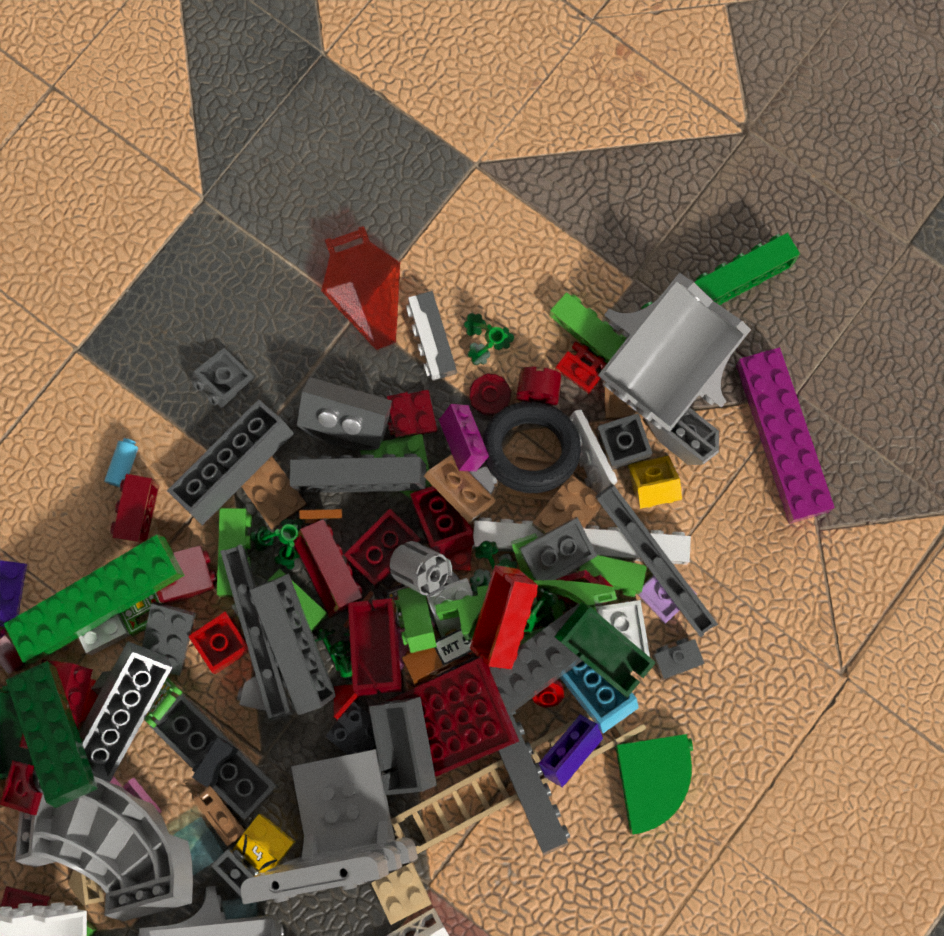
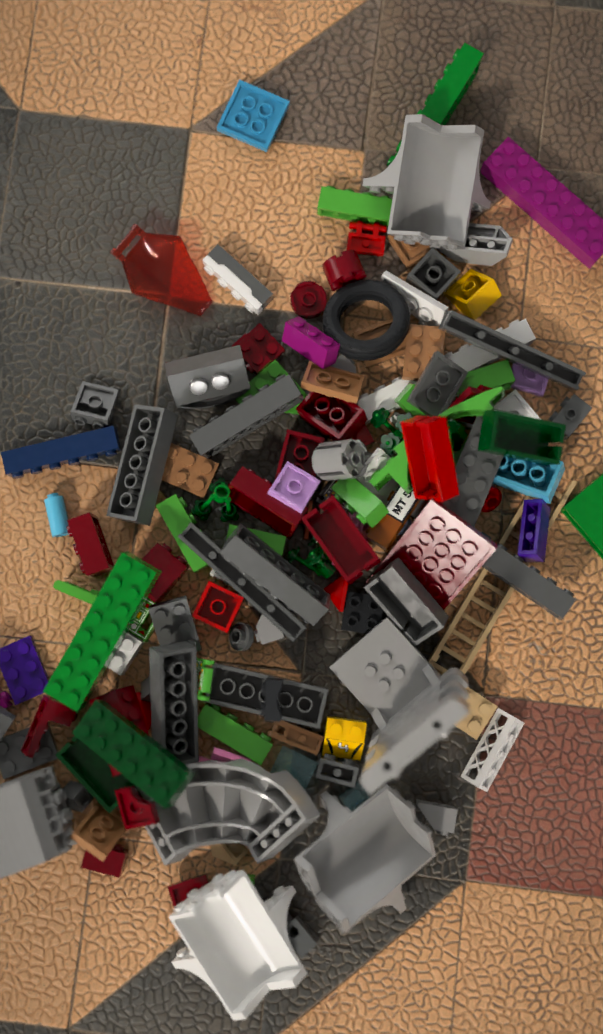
camera: 30 degrees left, 5 degrees up
(93, 546) = (76, 591): none -> bright green container
(161, 776) = (233, 733): none -> bright green brick
(162, 404) = (61, 451): none -> dark blue brick
(225, 685) = (241, 636): none -> dark grey plate
(314, 516) = (231, 469): dark orange wing -> none
(360, 569) = (294, 487): none -> lavender tile
(494, 337) = (289, 251): dark green plant -> none
(543, 185) = (253, 115): none -> dark azure plate

